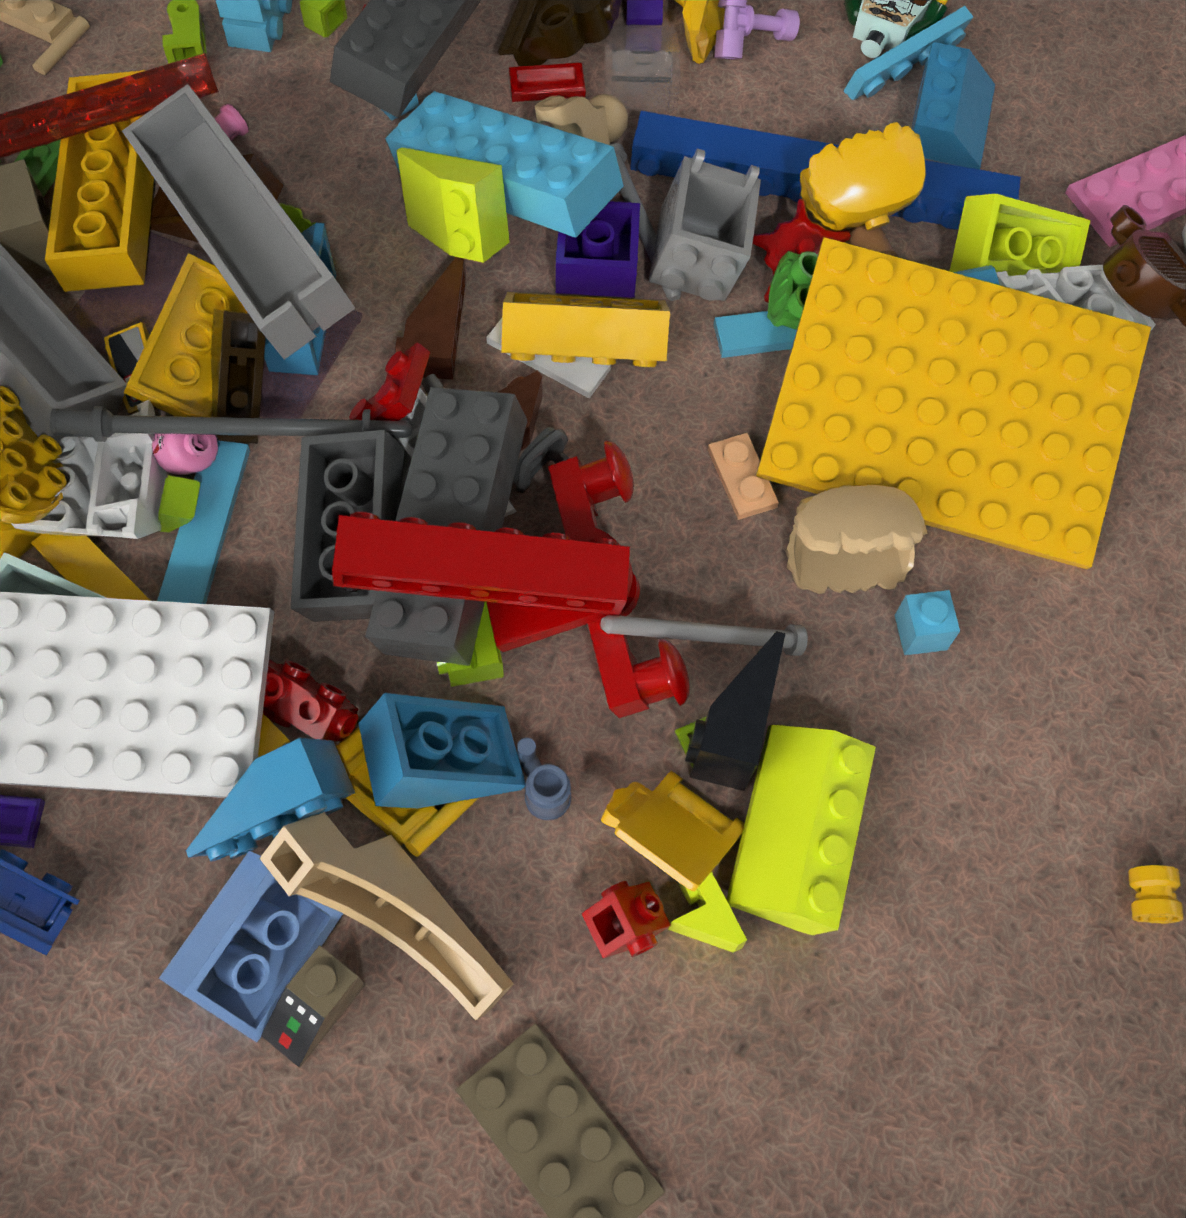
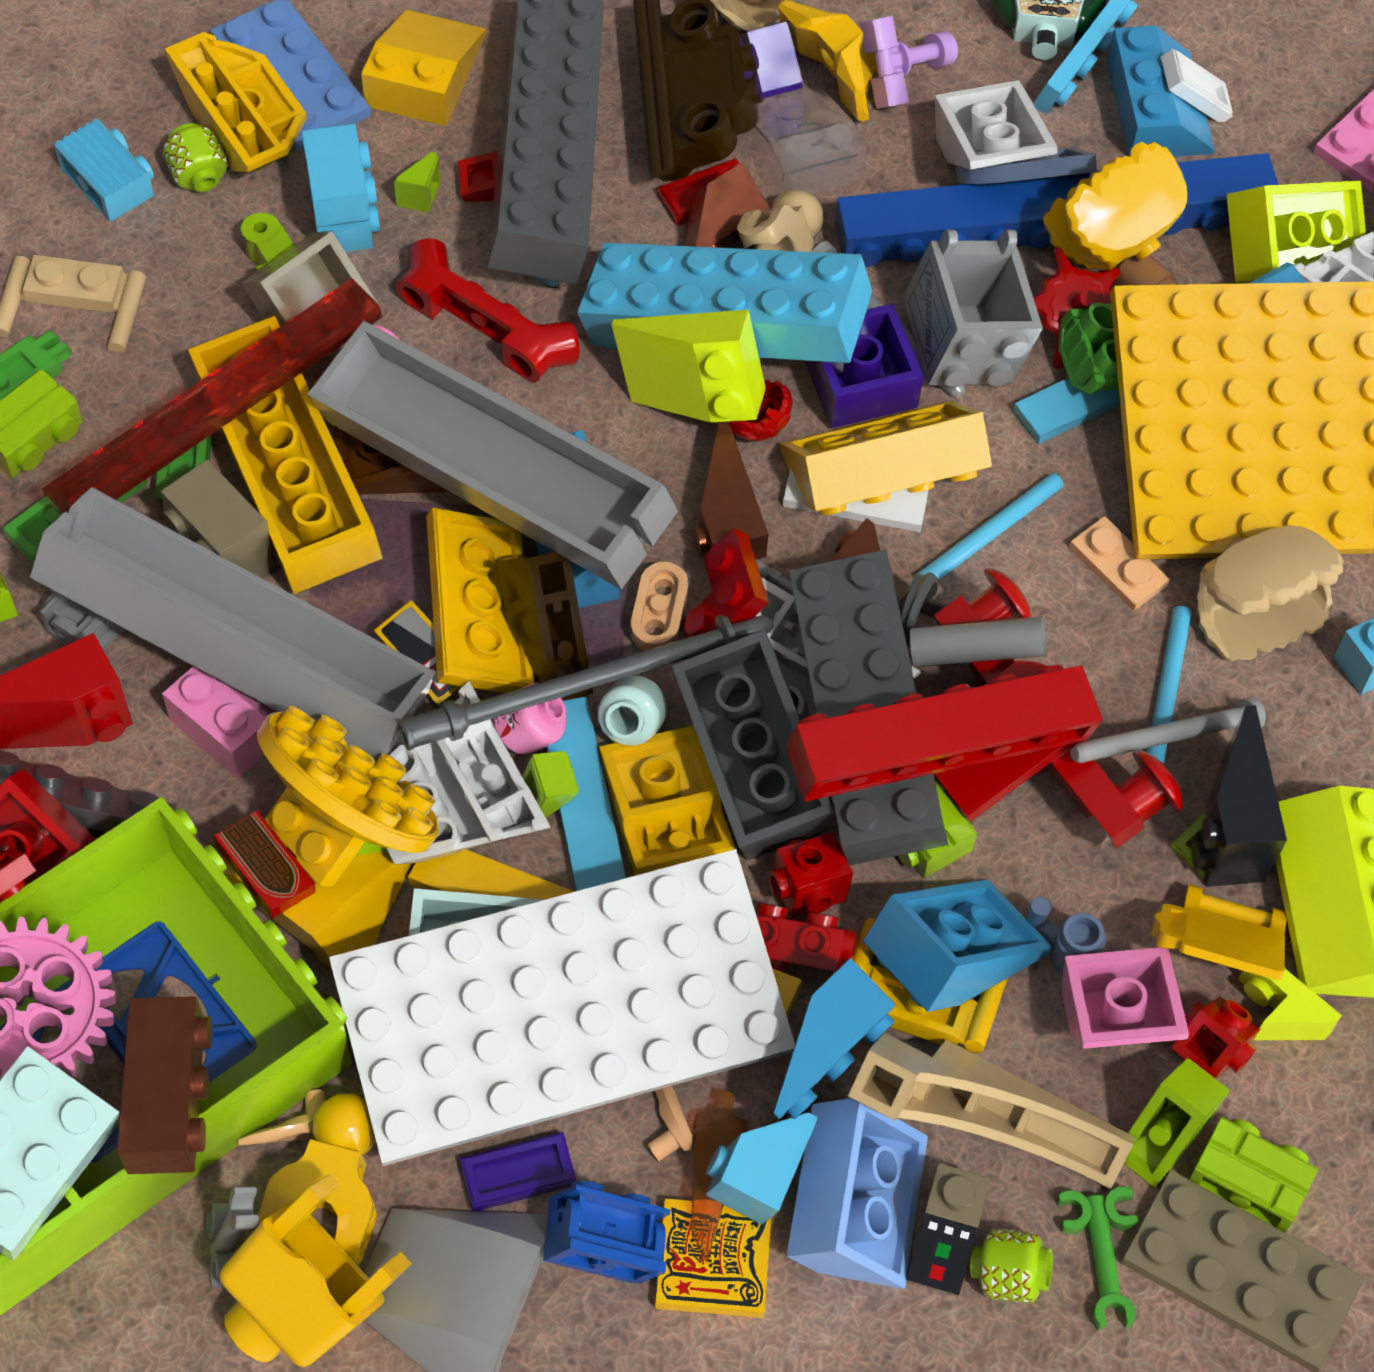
camera: 20 degrees left, 5 degrees down
(108, 954) = (732, 1277): none -> yellow tile
(136, 827) = (679, 1131): none -> light nougat bar
(150, 867) = (709, 1133): none -> clear orange bar
(170, 889) = (759, 1167): none -> medium azure slope
(185, 41) = (301, 277): none -> dark tan piece
(256, 554) = (665, 800): none -> yellow slope
(270, 466) = (632, 710): none -> light aqua head
(338, 392) = (658, 609): none -> light nougat plate
(340, 155) = (526, 346): none -> red plate
(344, 653) = (810, 875): none -> red brick
(351, 1060) = (1012, 1266): none -> lime head
(453, 1038) = (1099, 1215): none -> bright green bar
(504, 265) = (772, 415): none -> red hair
(546, 81) = (720, 206): none -> copper slope
(554, 856) = (1122, 998): none -> bright pink slope
(554, 979) = (1173, 1120): none -> lime slope
(568, 499) = (978, 641): none -> light grey piece
(606, 1055) = (1255, 1173): none -> lime brick
(646, 415) = (994, 527): none -> medium azure bar
(736, 592) = (1170, 673): none -> medium azure bar
(792, 87) = (990, 126): none -> white slope
(800, 128) = (1066, 162): none -> sand blue tile
(984, 108) = (1196, 86): none -> white tile

